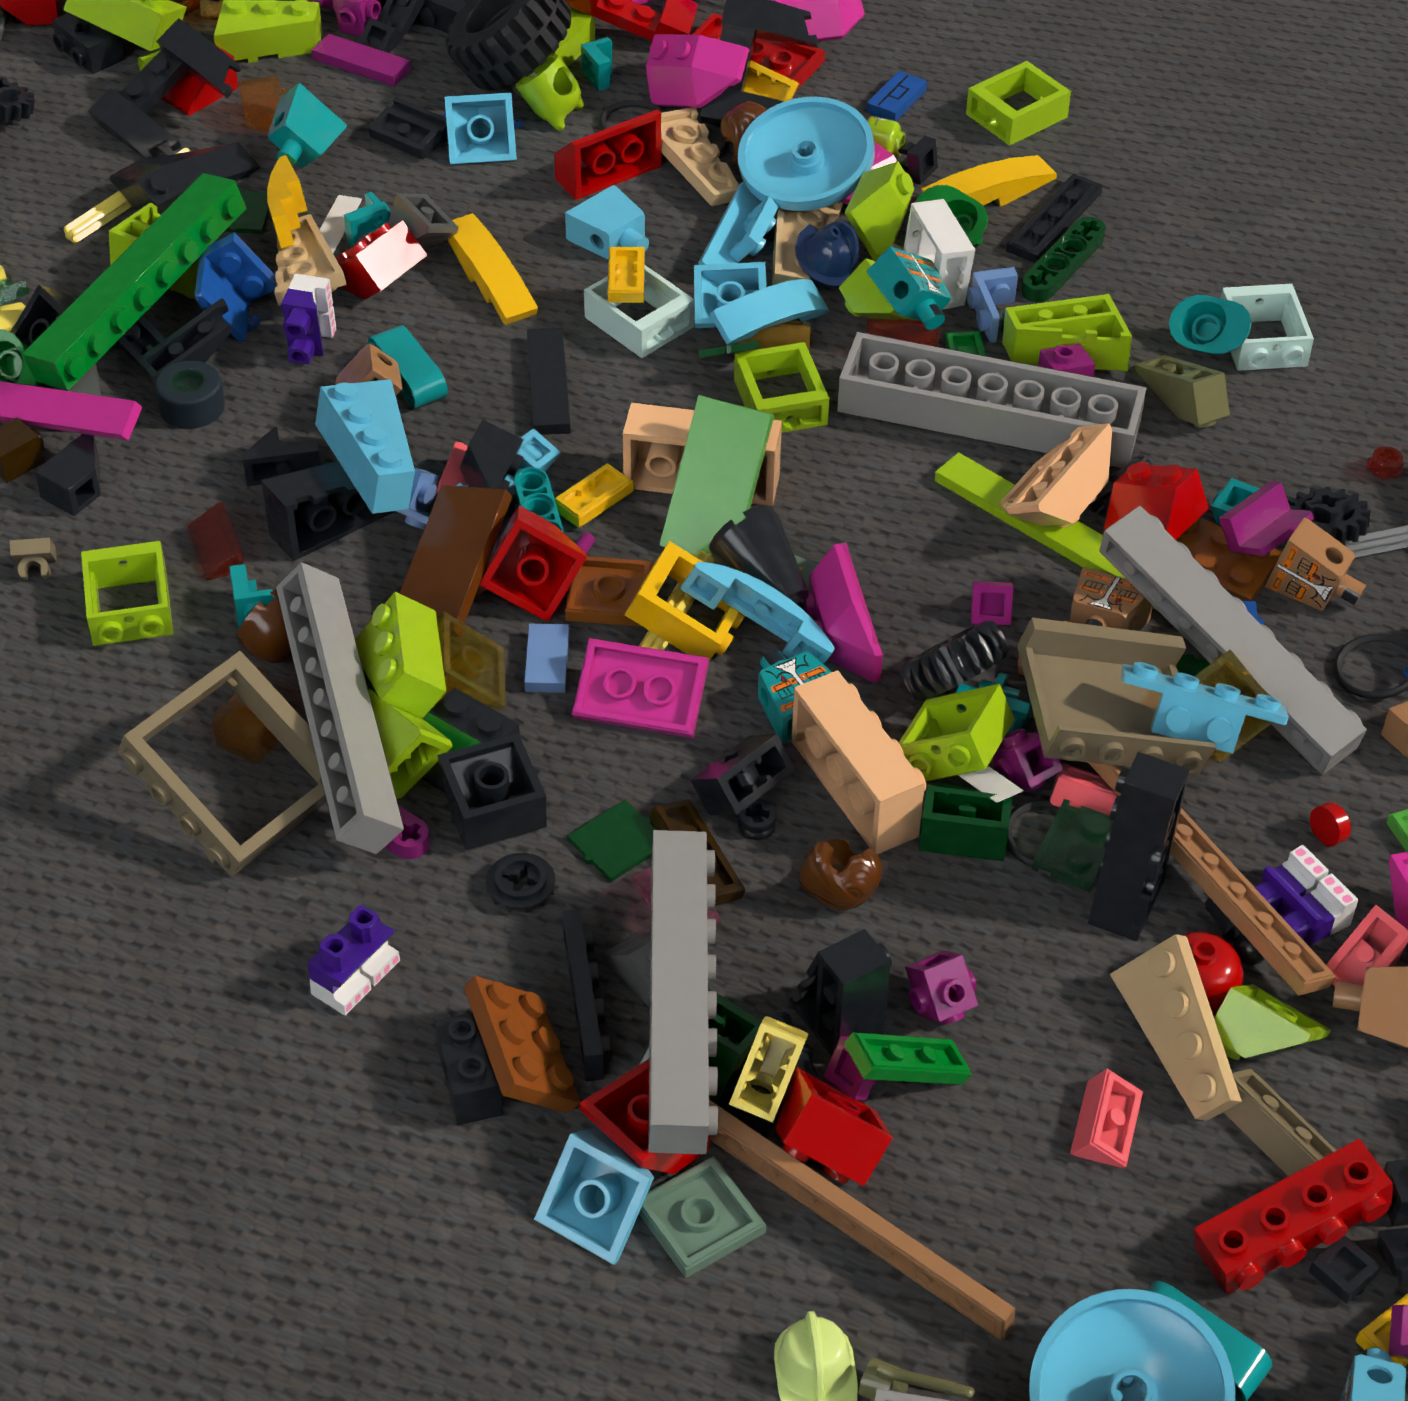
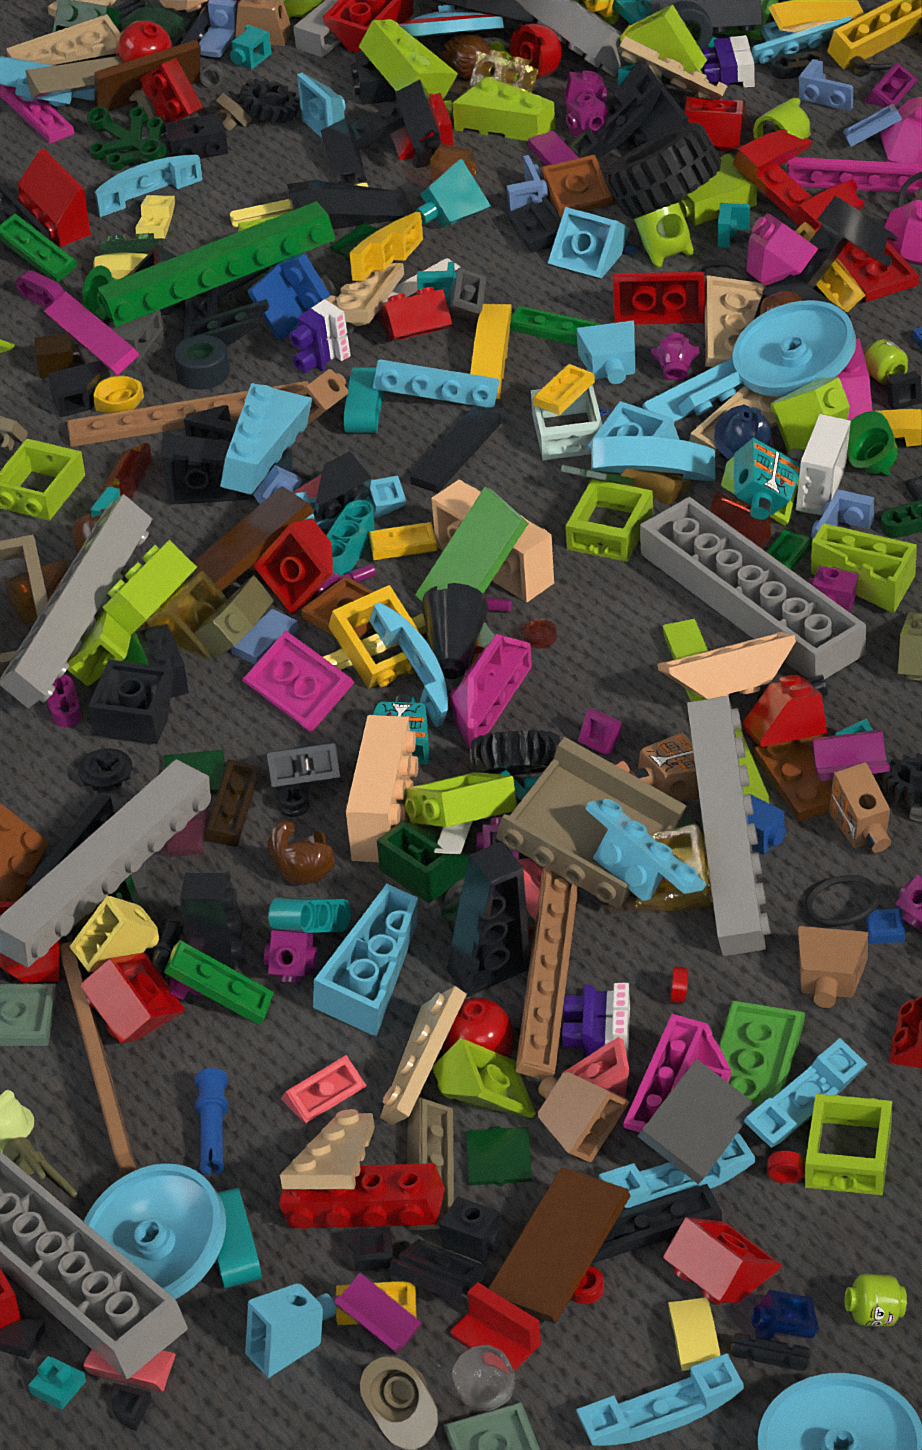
camera: 40 degrees right, 5 degrees down
(65, 87) = (319, 104): none -> medium azure slope
(126, 465) = (117, 394): none -> yellow hat
(209, 462) = (156, 418): none -> medium nougat tile
(217, 103) = (431, 145): none -> black tile
(367, 95) = (528, 191): none -> medium blue bracket
(409, 76) = (576, 184): none -> dark orange plate
(477, 320) = (435, 383): none -> medium azure bracket
(508, 653) = (234, 617): none -> olive slope
(525, 221) = (547, 324): none -> green tile
(680, 205) = (675, 356): none -> magenta rock
(822, 531) = (540, 633): none -> clear red tile
(933, 933) = (309, 914): none -> teal beam
(1024, 1205) = (211, 1108): none -> blue pin
(1031, 961) = (366, 965): none -> medium azure wedge
(1236, 1189) = (333, 1155): none -> tan wing
(1344, 1095) = (499, 1156): none -> dark green piece

